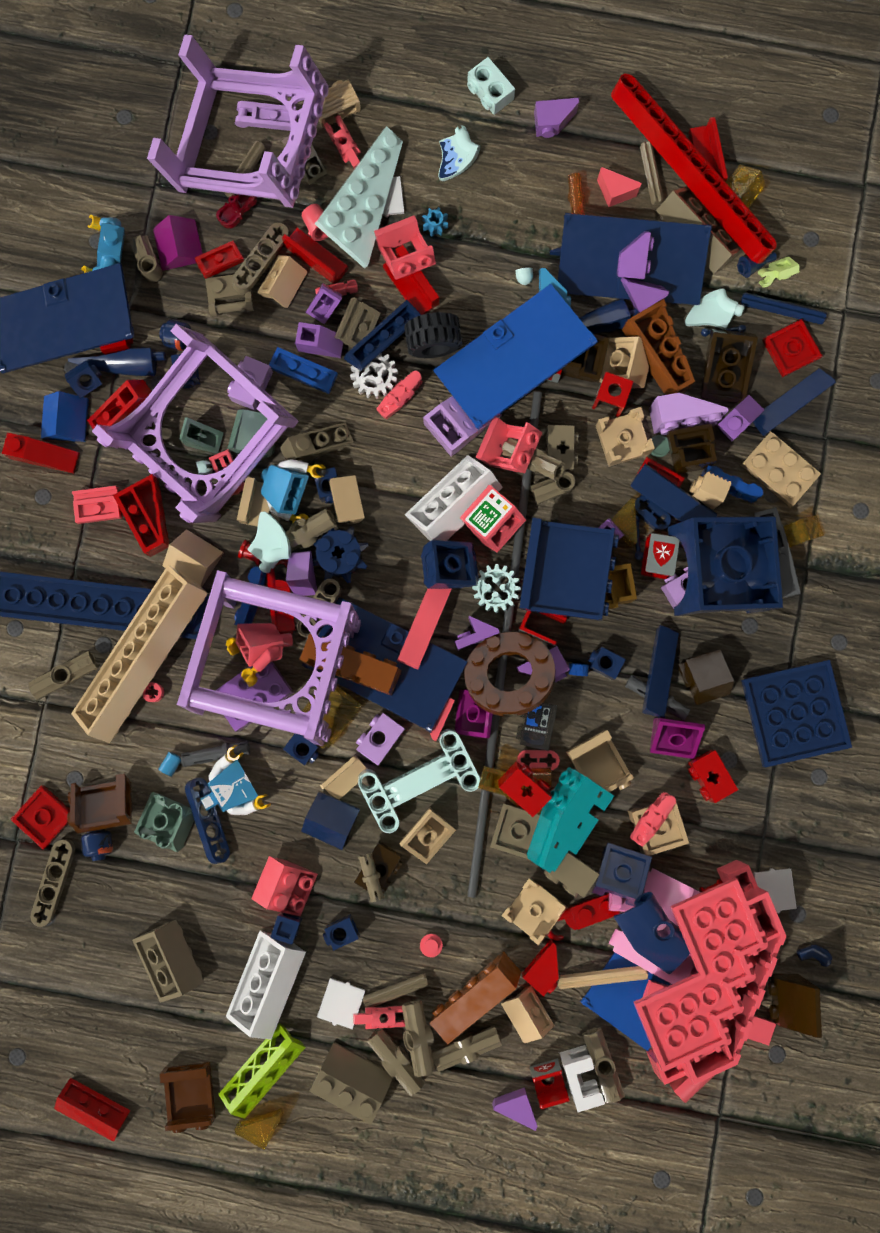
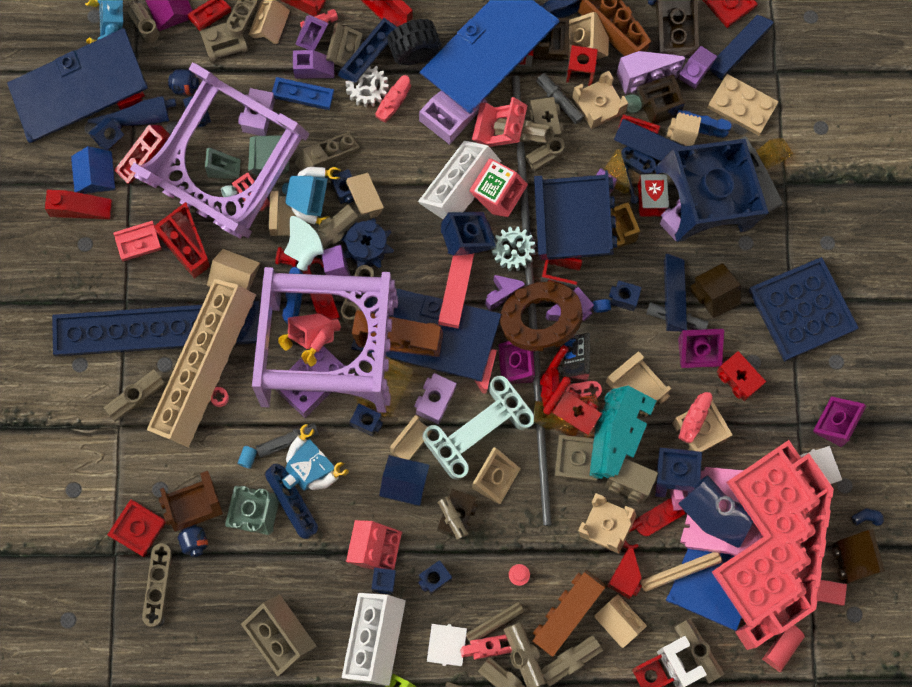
camera: 15 degrees left, 10 degrees down
(504, 749) = (551, 389): none -> red plate
(584, 431) = (564, 103): none -> dark grey pin
(809, 845) = (839, 420): none -> magenta slope

